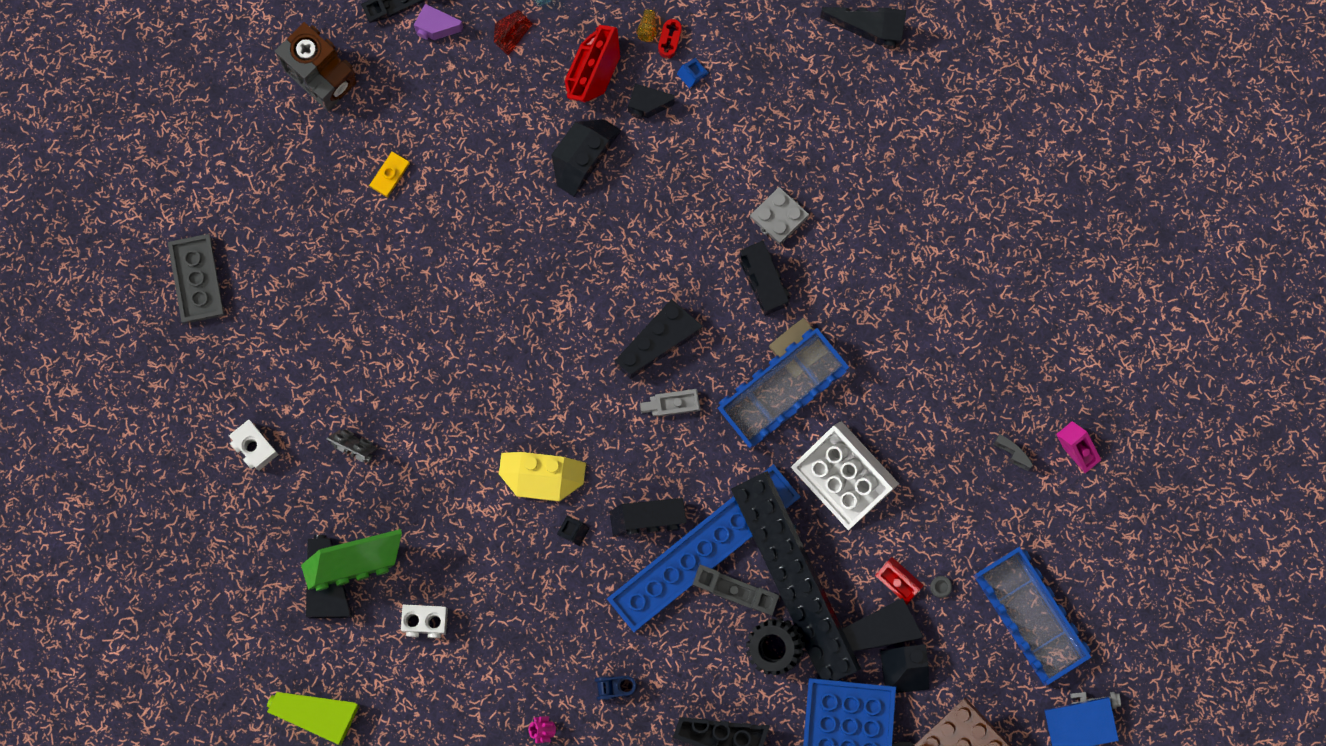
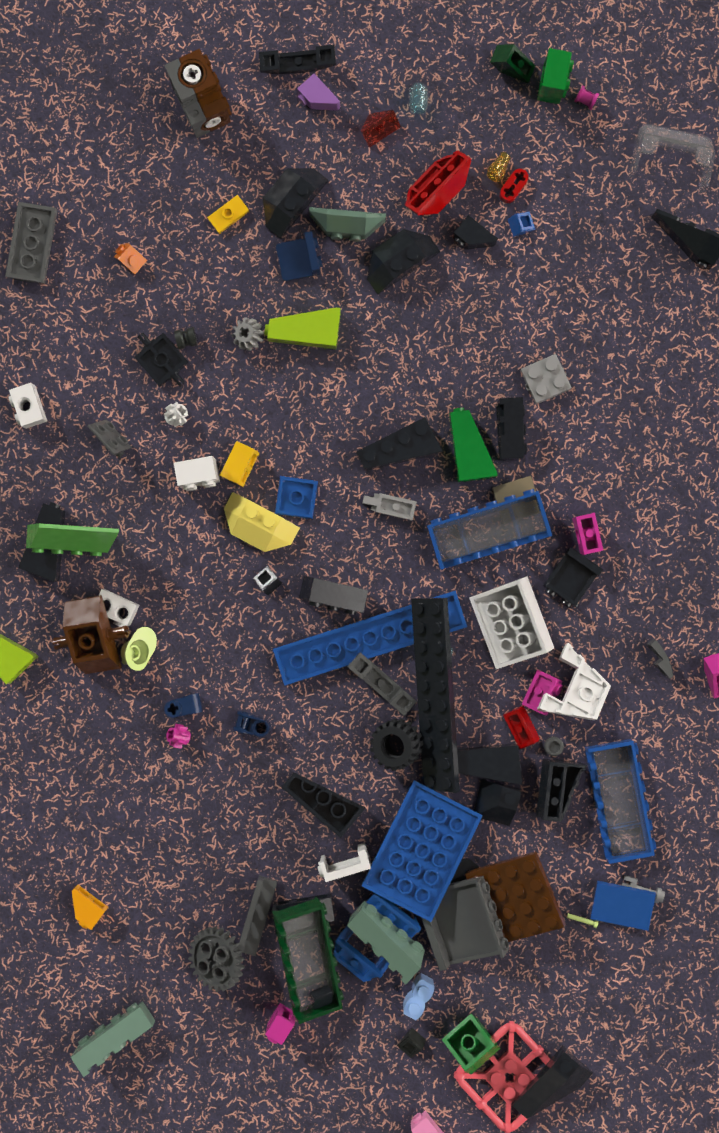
camera: 25 degrees right, 10 degrees up
(304, 255) = (130, 257): none -> orange bracket
(375, 345) = (161, 359): none -> black plate
(397, 311) = (190, 337): none -> pearl dark grey wheel
(402, 639) = (90, 635): none -> reddish brown slope
(412, 395) = (176, 414): none -> white gear
(447, 134) = (290, 198): none -> black wedge
(449, 281) = (241, 332): none -> light grey gear
(458, 445) = (197, 473): none -> white brick
(466, 653) = (139, 648): none -> yellowish green piece
(480, 190) = (299, 258): none -> dark blue bracket
(498, 420) = (239, 463): none -> yellow hinge
(514, 138) = (347, 224): none -> sand green wedge
(514, 258) = (306, 329): none -> lime slope
(539, 693) = (187, 705): none -> dark blue piece
(570, 433) = (296, 497): none -> blue tile
(731, 317) = (469, 449): none -> green slope
(885, 354) = (587, 534): none -> dark pink brick
(888, 405) = (571, 577): none -> black panel
(906, 535) = (541, 684): none -> dark pink bracket
(949, 517) = (584, 694): none -> white wing
(961, 626) = (556, 787): none -> black wedge

